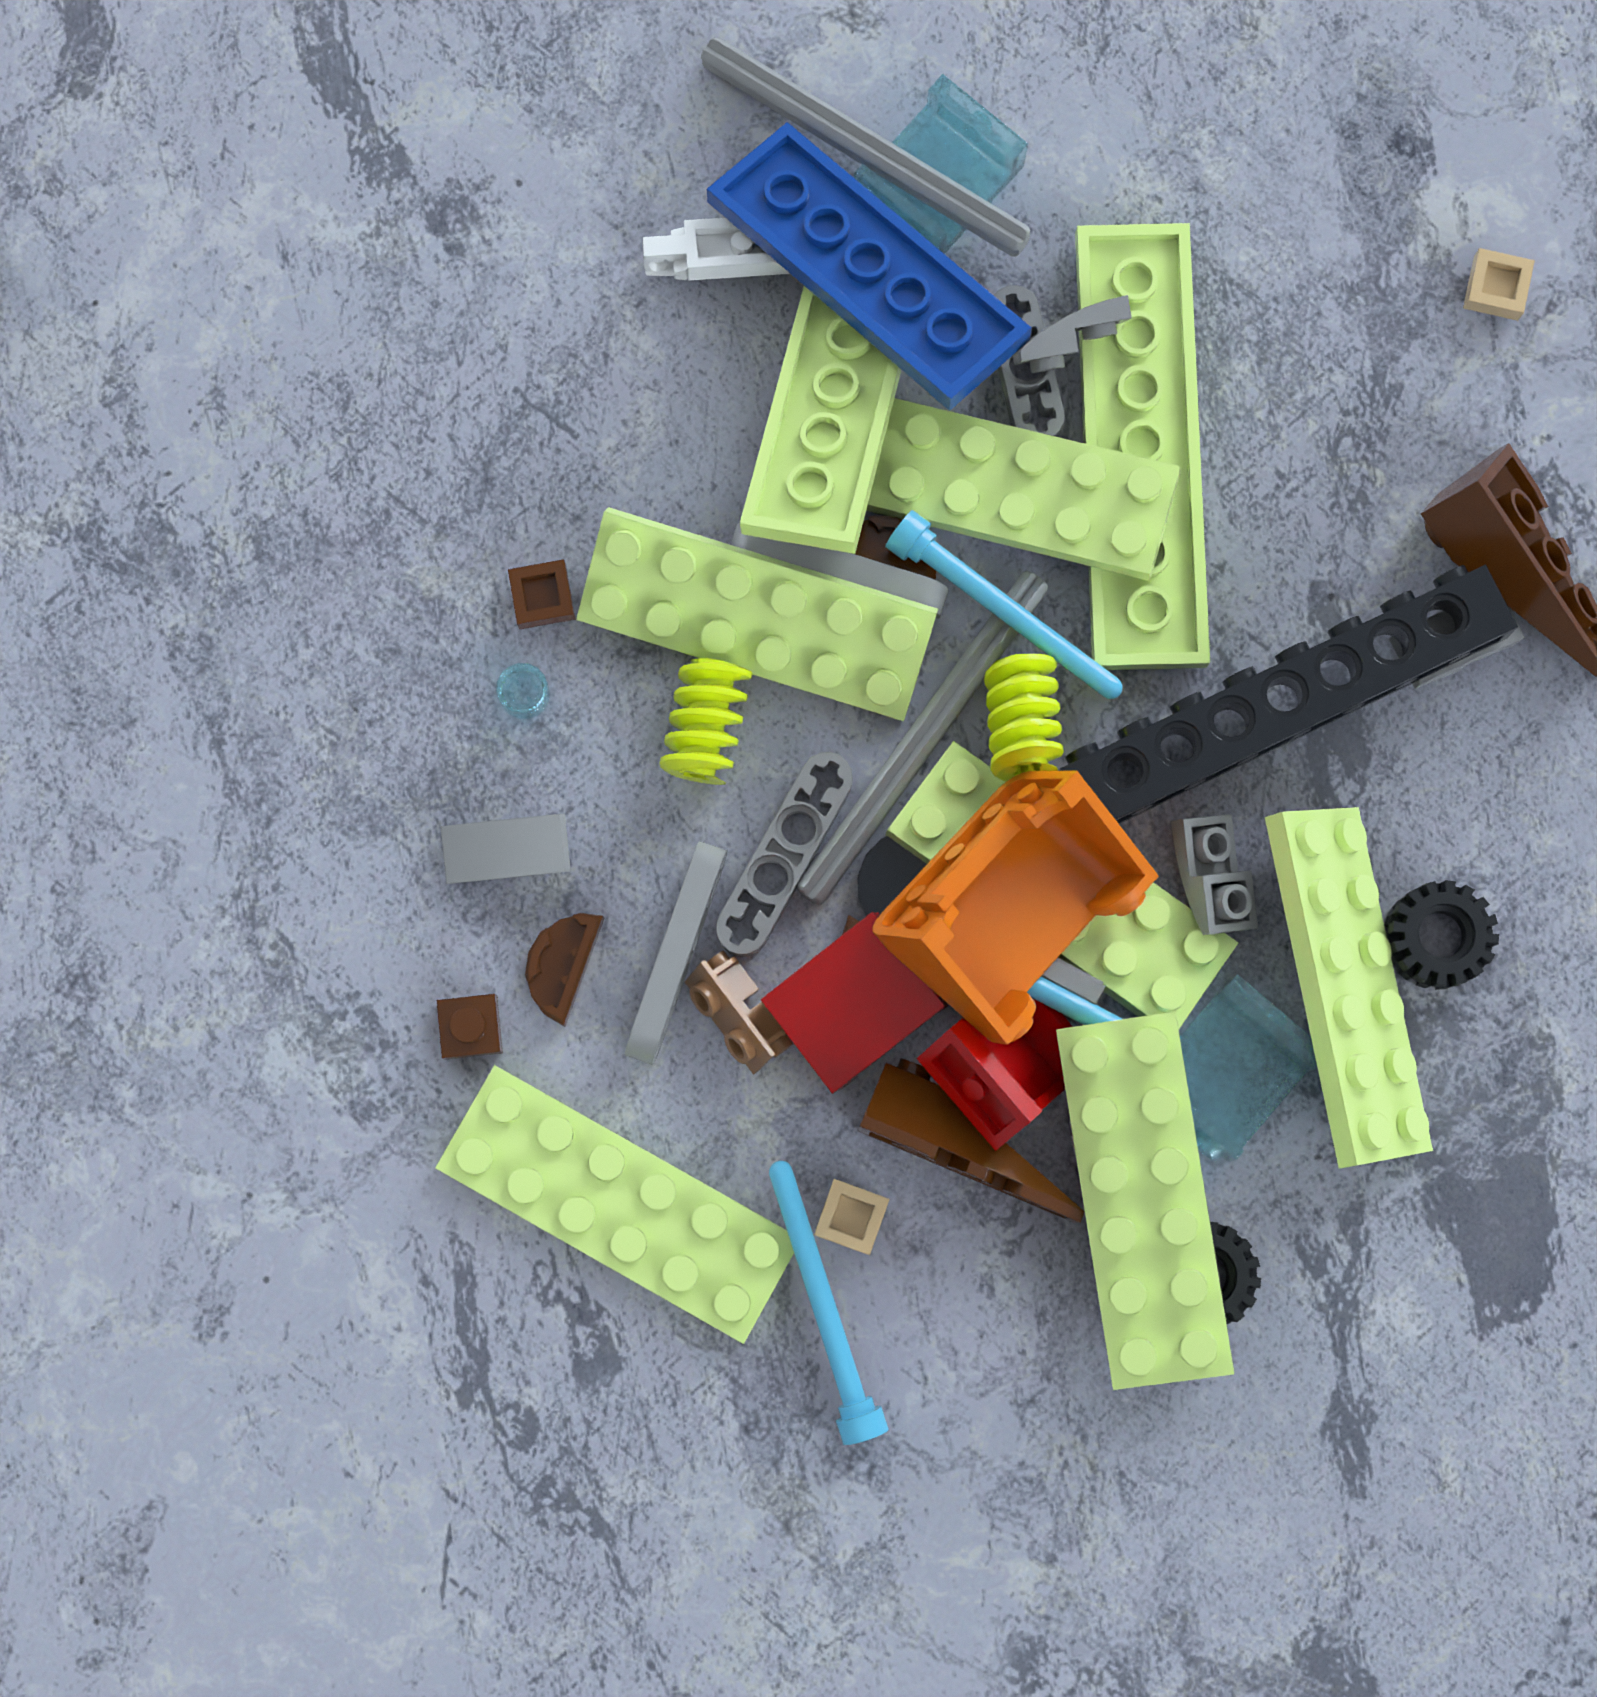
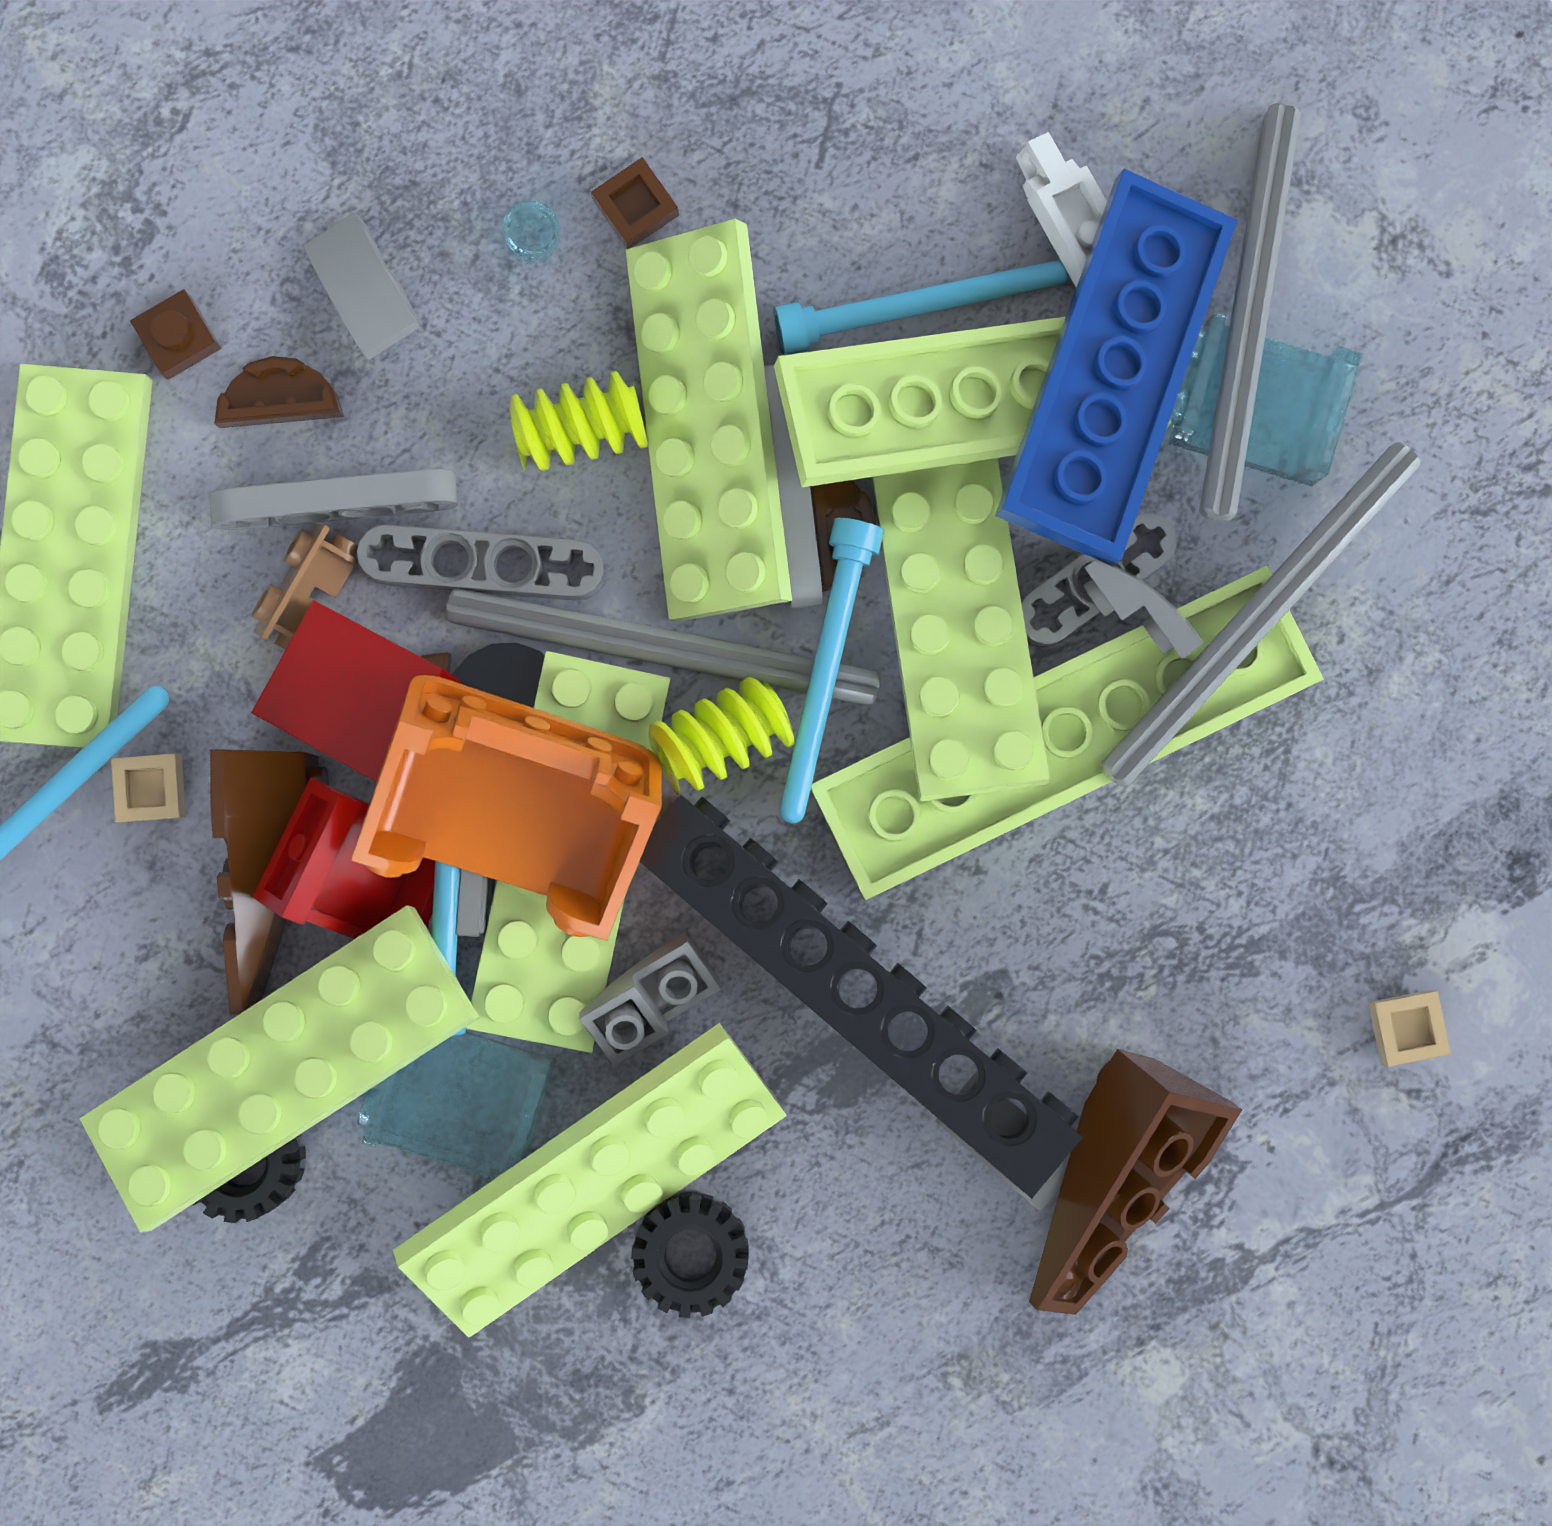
camera: 60 degrees right, 5 degrees up
(707, 507) = (803, 326): none -> medium azure piece
(1117, 247) = (1260, 614): none -> light grey axle

